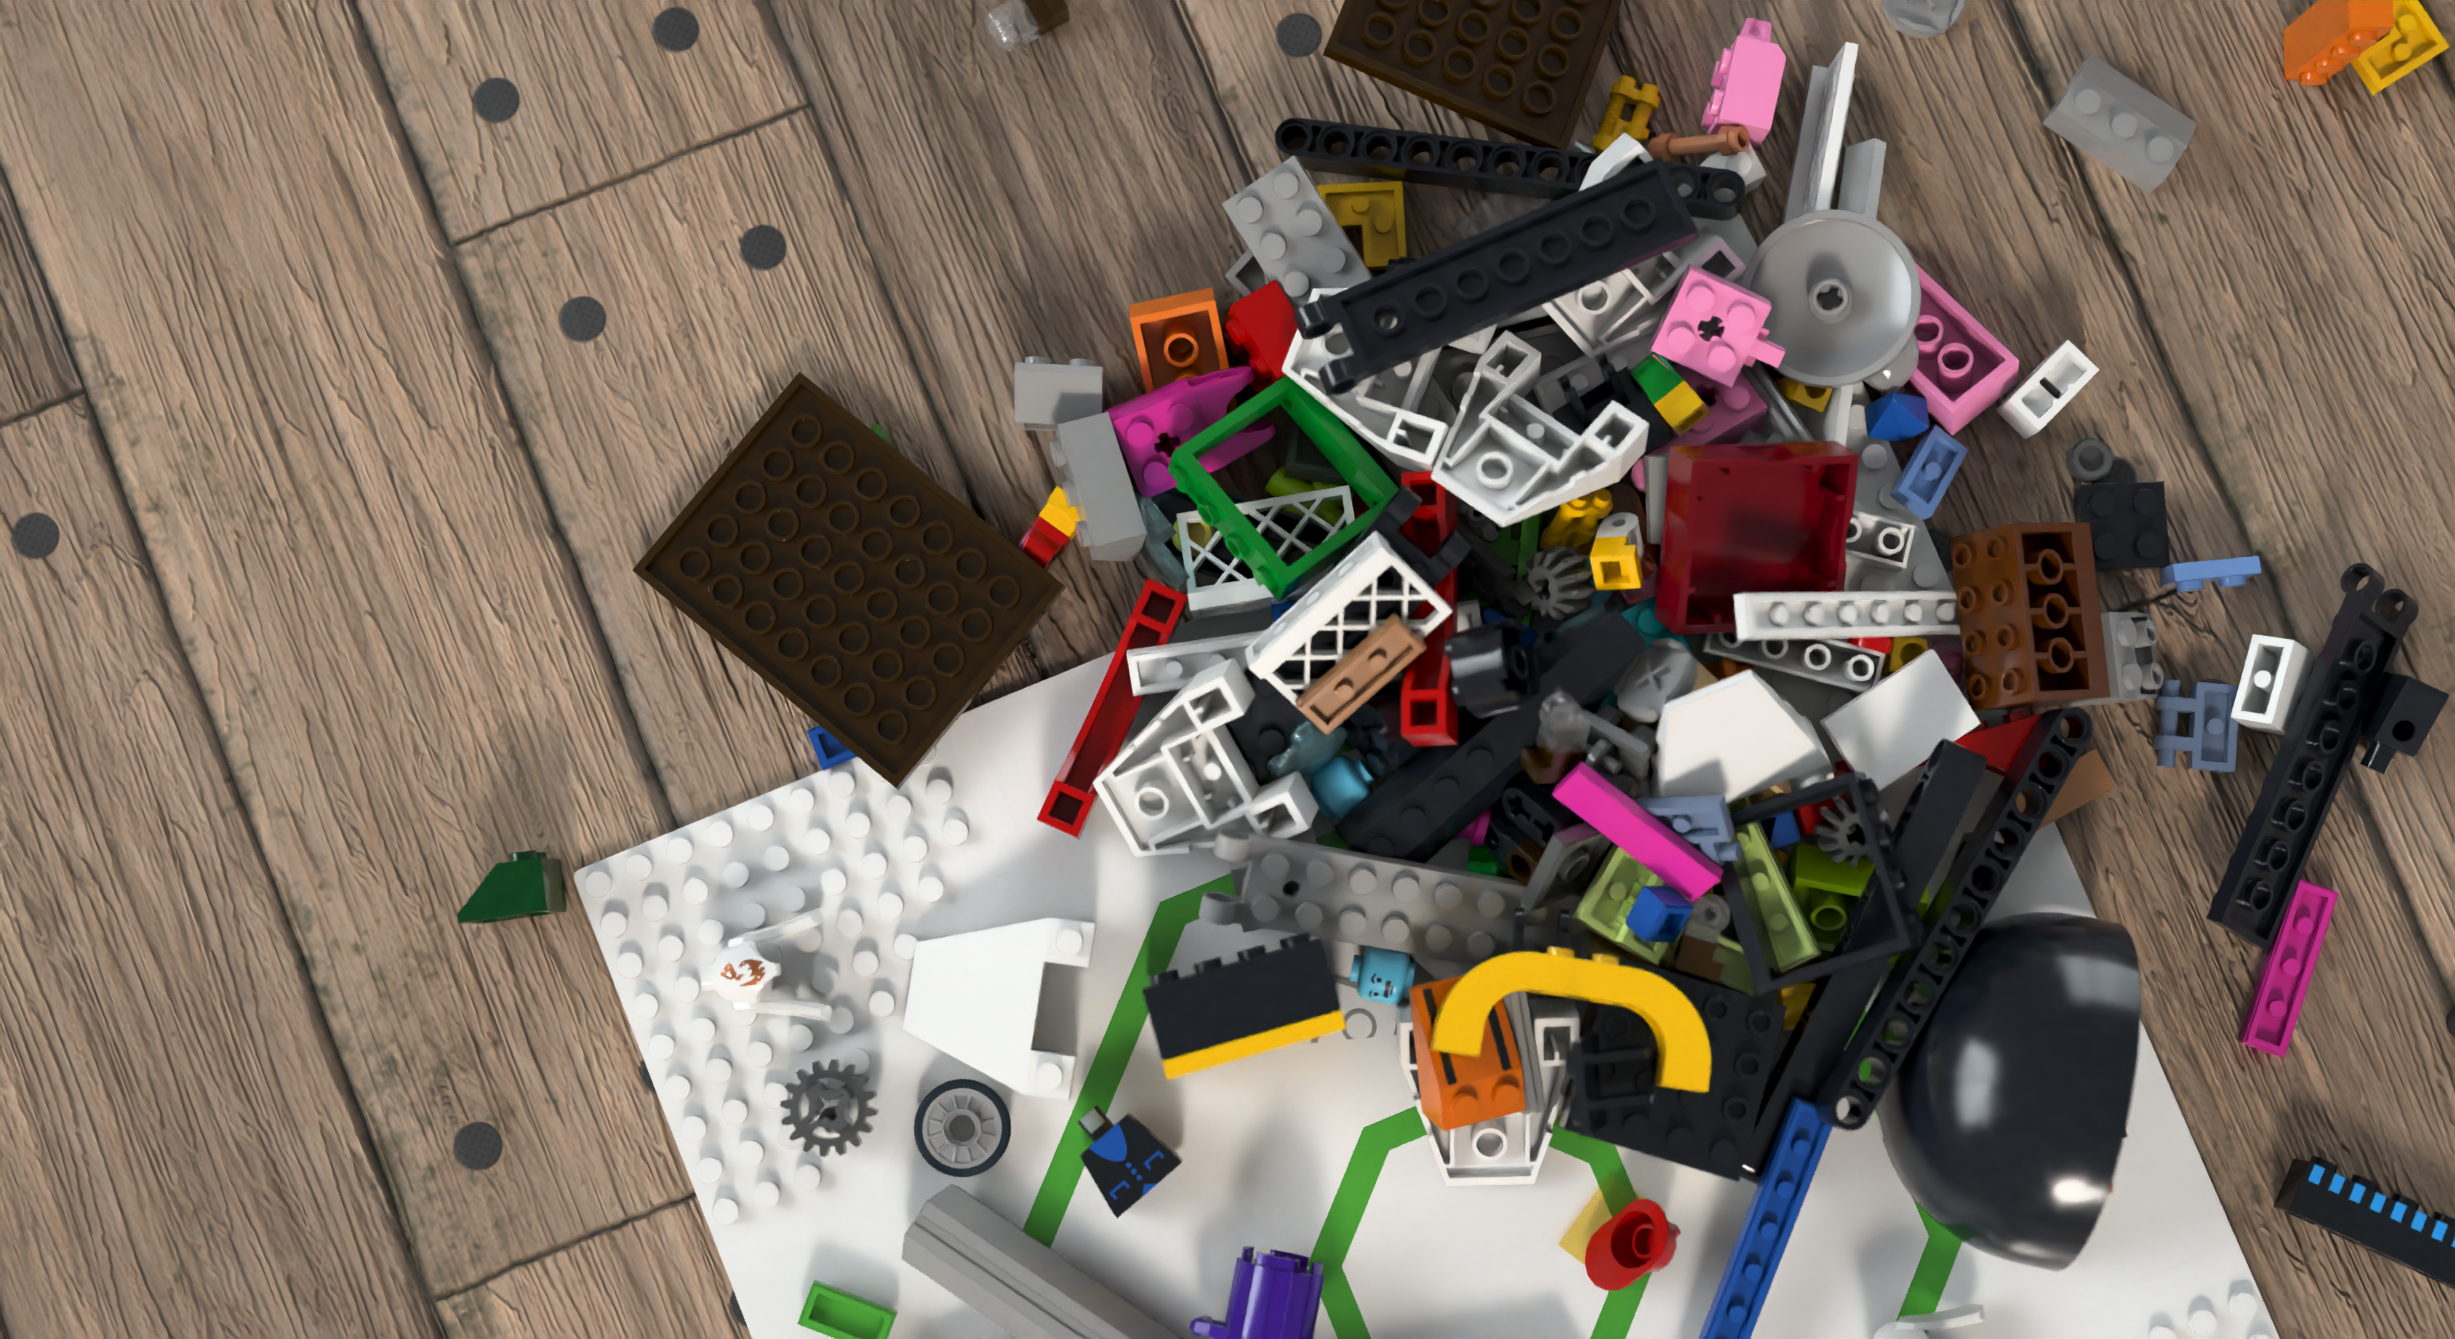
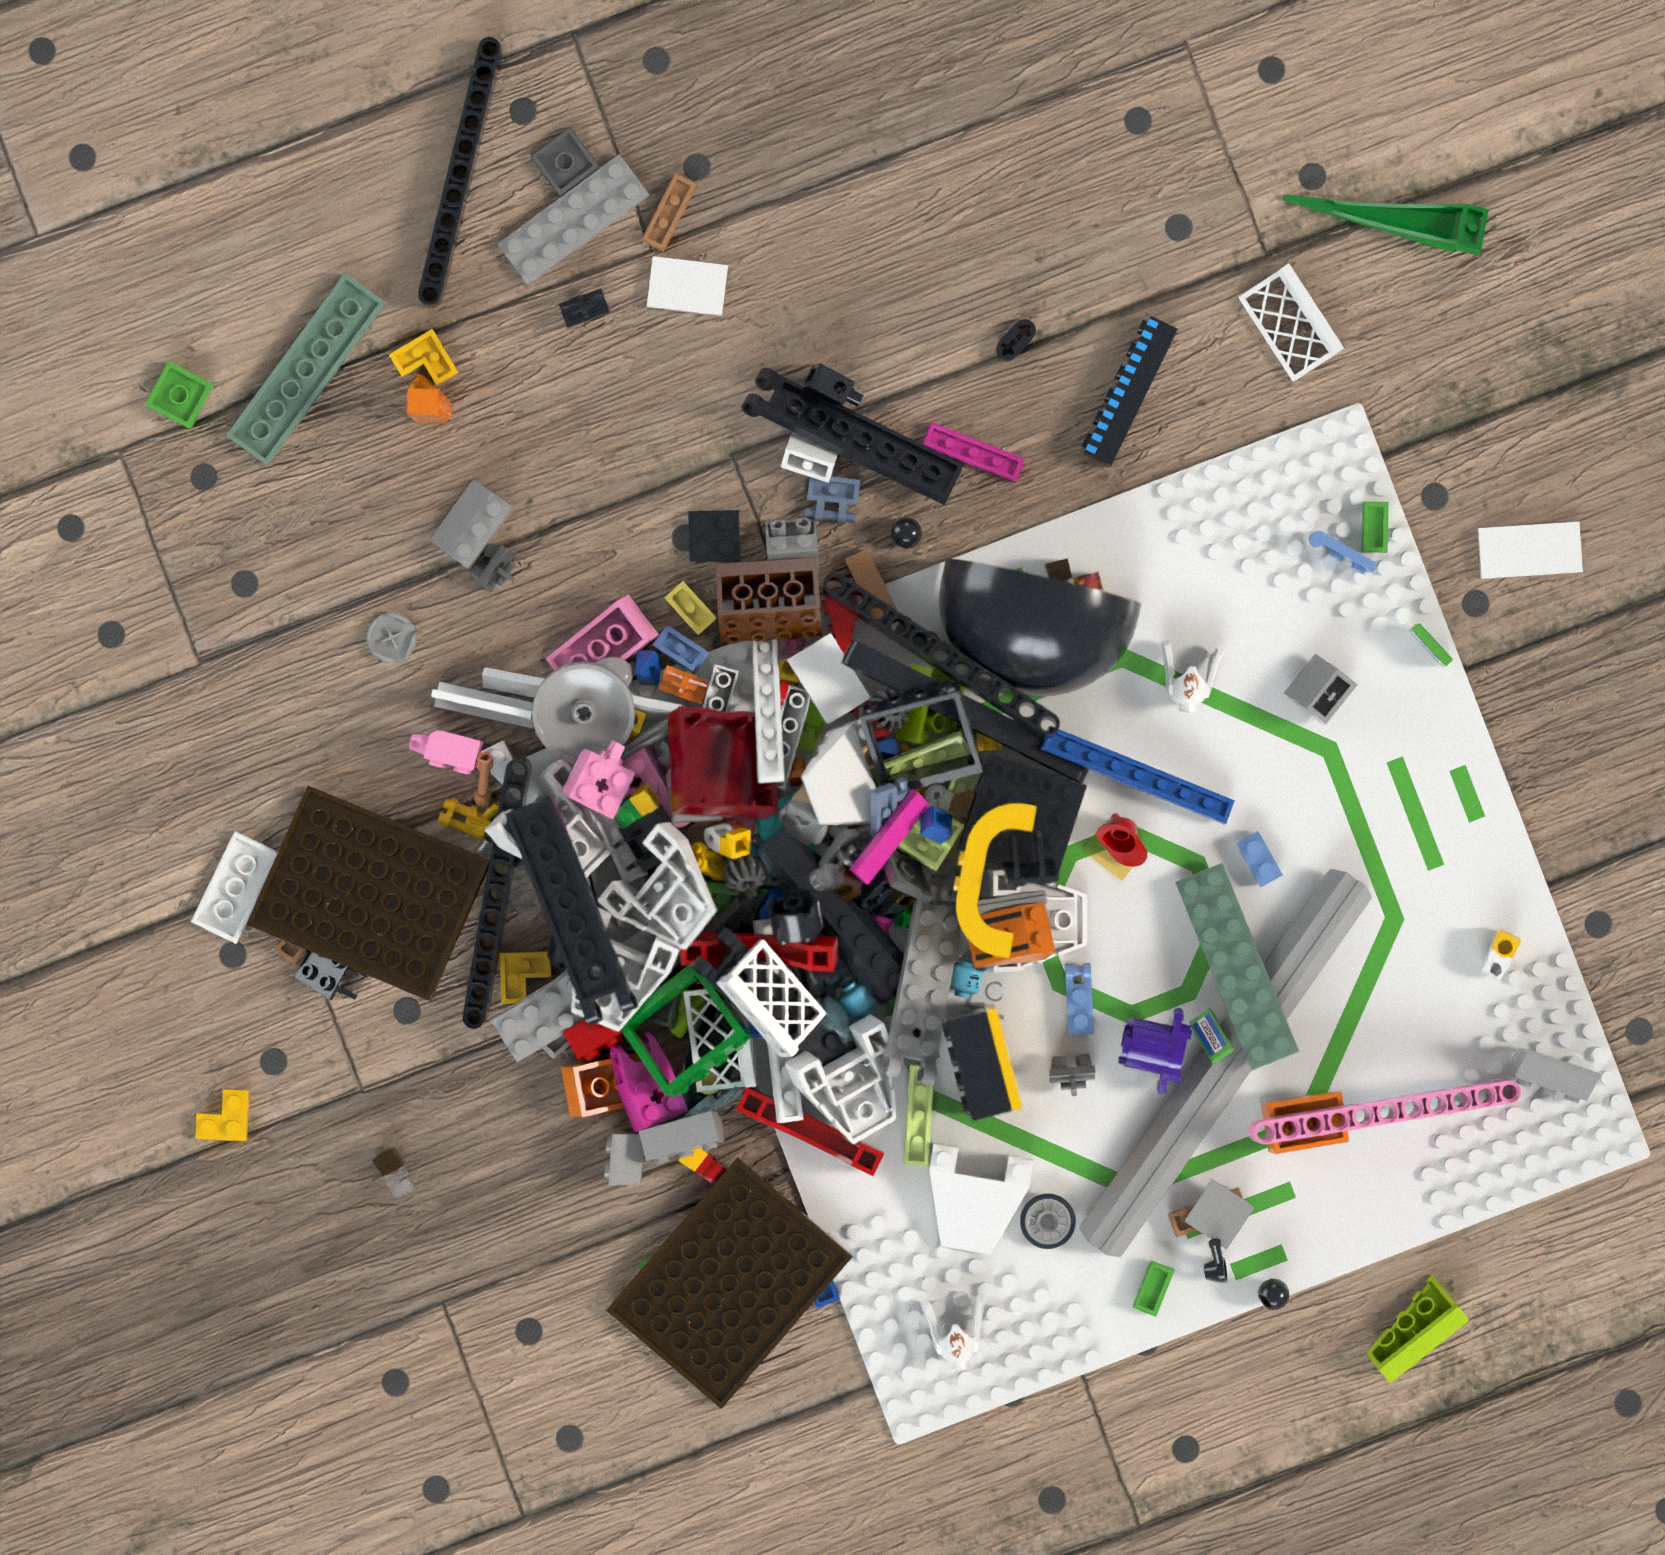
camera: 90 degrees left, 5 degrees up
(516, 890) = (906, 1474): dark green slope -> none
(815, 1092) = (1044, 1289): dark grey gear -> none
(1124, 1158) = (1067, 1129): black torso -> none
(1133, 897) = (918, 1121): none -> yellowish green tile
(1216, 1166) = (1072, 1077): none -> dark grey hips
(1349, 1174) = (1079, 1000): none -> medium blue plate
(1360, 674) = (796, 991): medium nougat tile -> none
(1809, 697) = (811, 729): none -> clear neon green slope
(1876, 474) = (684, 685): none -> orange hips
(1999, 488) = (690, 608): none -> light yellow plate
(2047, 389) = (633, 579): white brick -> none
(2051, 161) = (497, 569): none -> dark grey hips
(2089, 460) = (674, 552): dark grey tile -> none
(2148, 854) = (906, 532): none -> black piece
(2228, 572) = (745, 498): medium blue plate -> none

